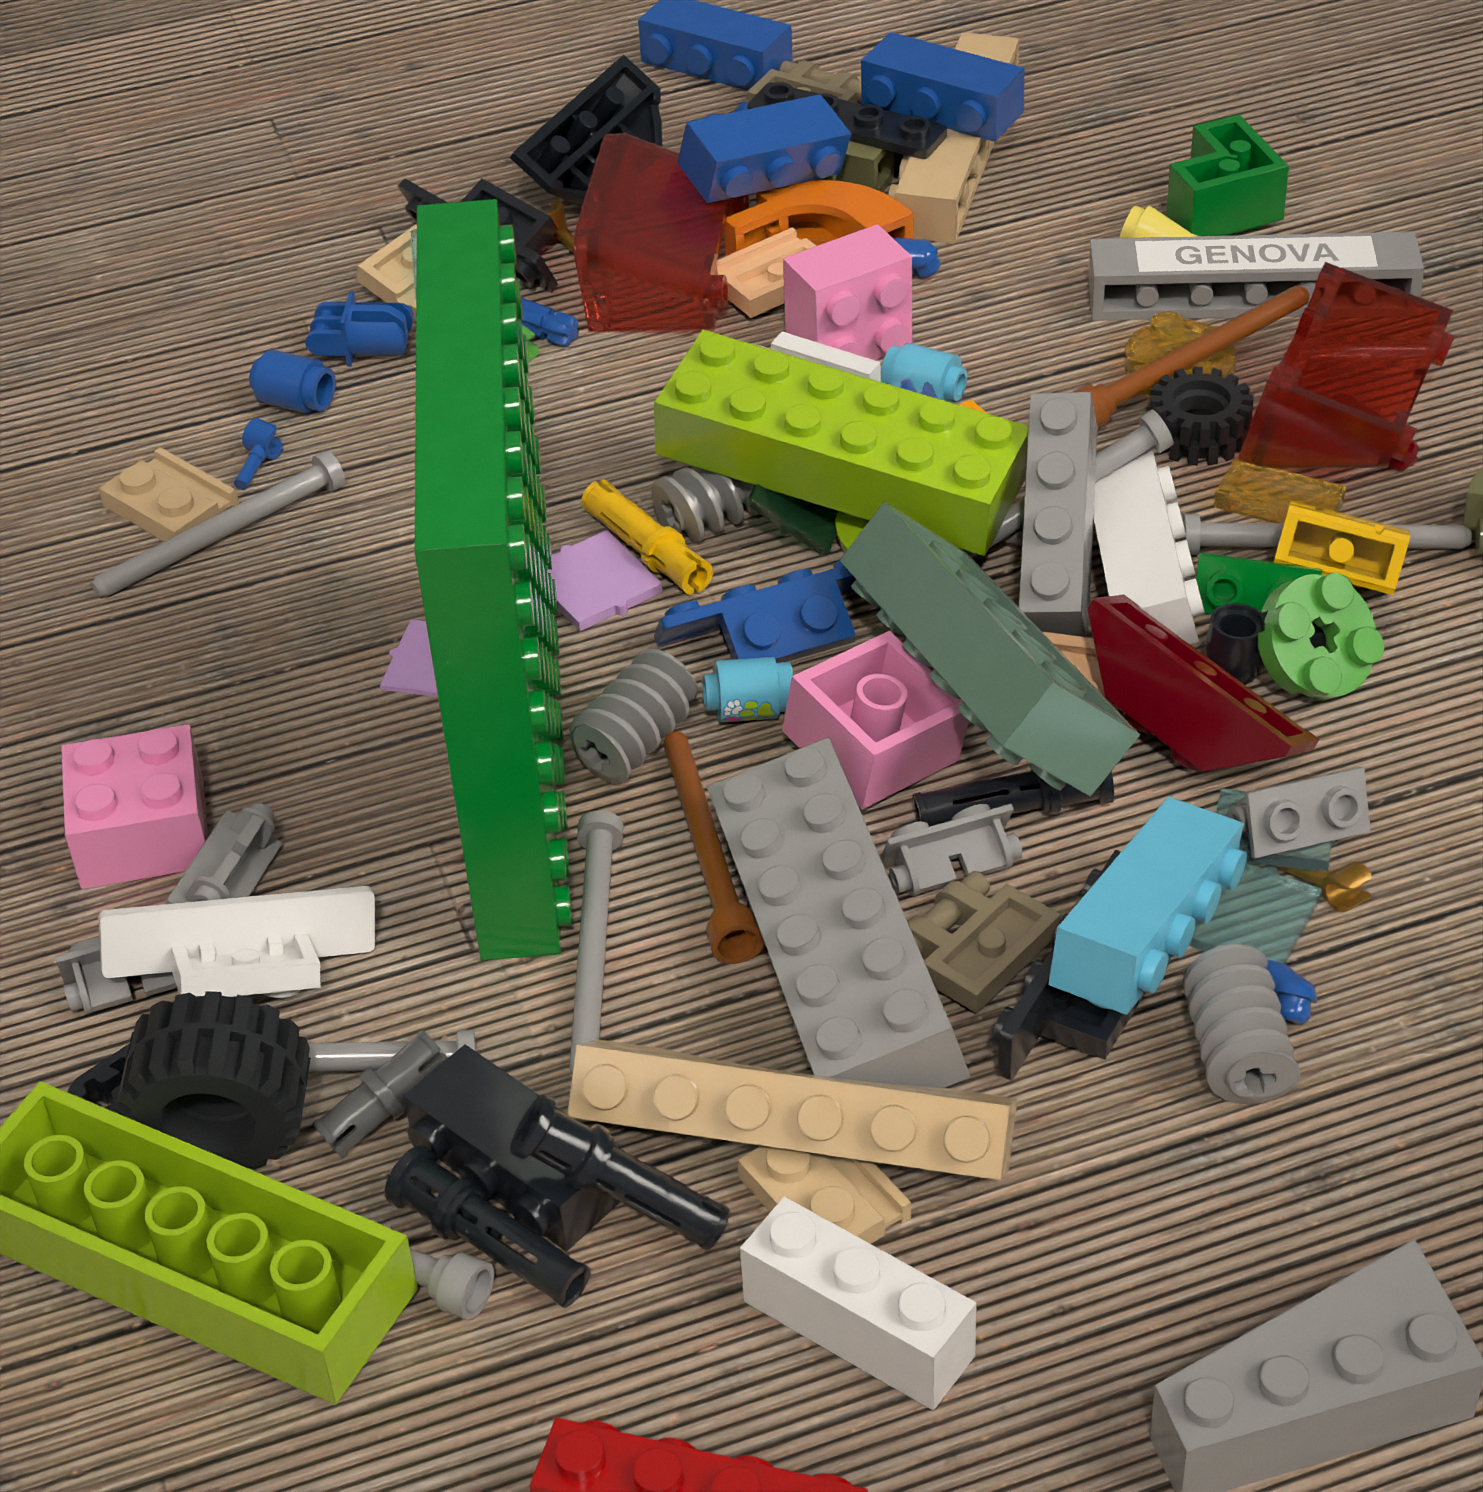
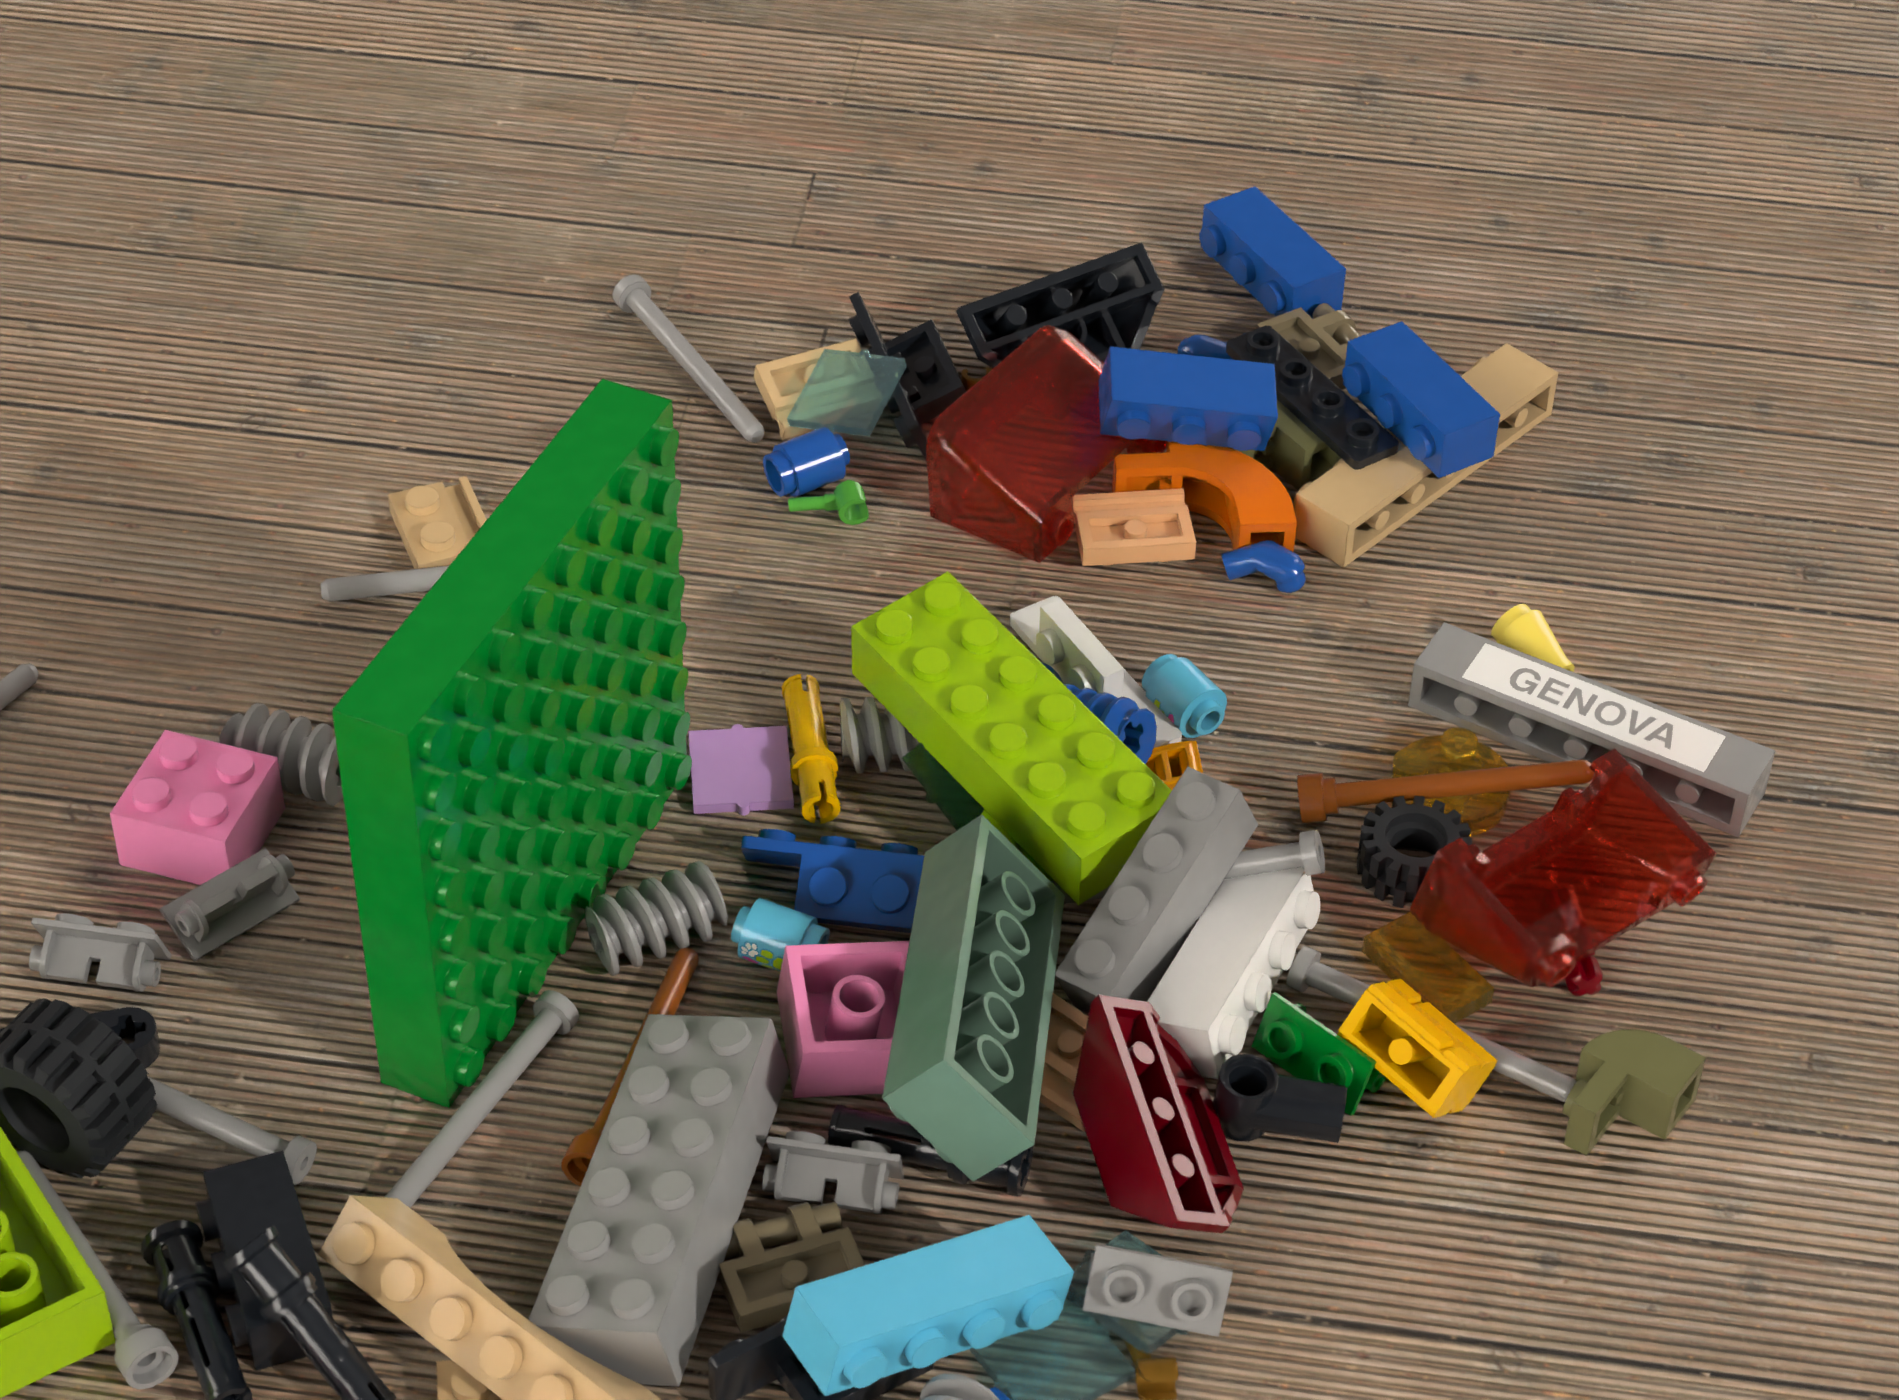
camera: 25 degrees right, 0 degrees up
(194, 258) = (633, 295): none -> light grey bar
(210, 719) = (304, 755): none -> light grey piece
(240, 942) = (181, 975): white bracket -> none
(359, 329) = (720, 430): blue arm -> none
(379, 1094) = (186, 1164): dark grey pin -> none
(542, 321) = (882, 481): blue axle -> none
(851, 293) = (1159, 590): bright pink brick -> none
(1228, 182) = (1636, 622): green brick -> none
(1349, 633) = (1347, 1150): bright green plate -> none

